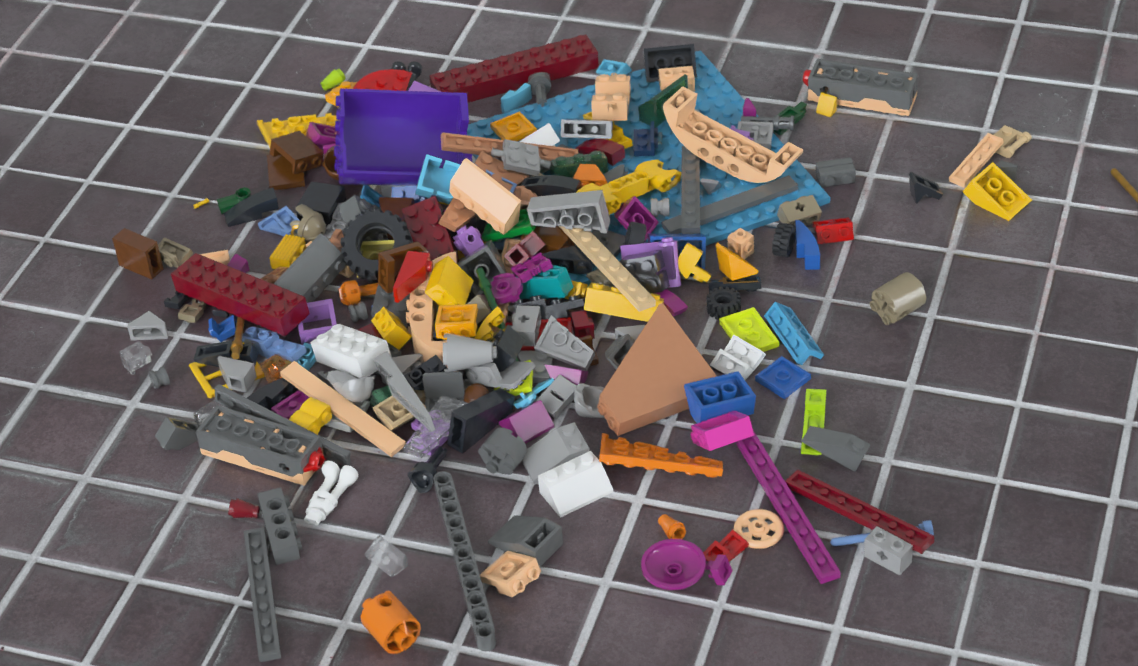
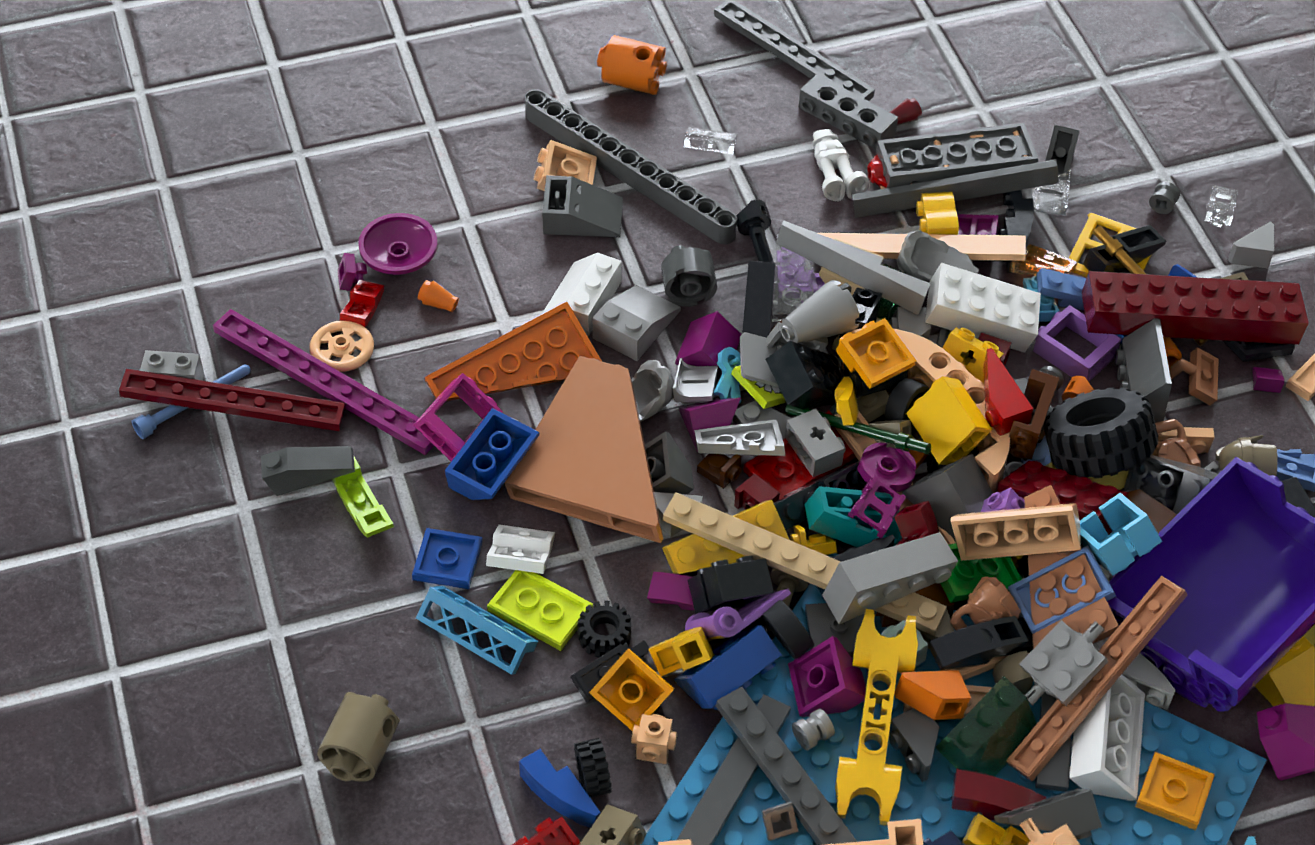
camera: 140 degrees right, 10 degrees up
(237, 374) = (1077, 229): light grey slope -> none
(287, 251) = (1227, 418): yellow brick -> none

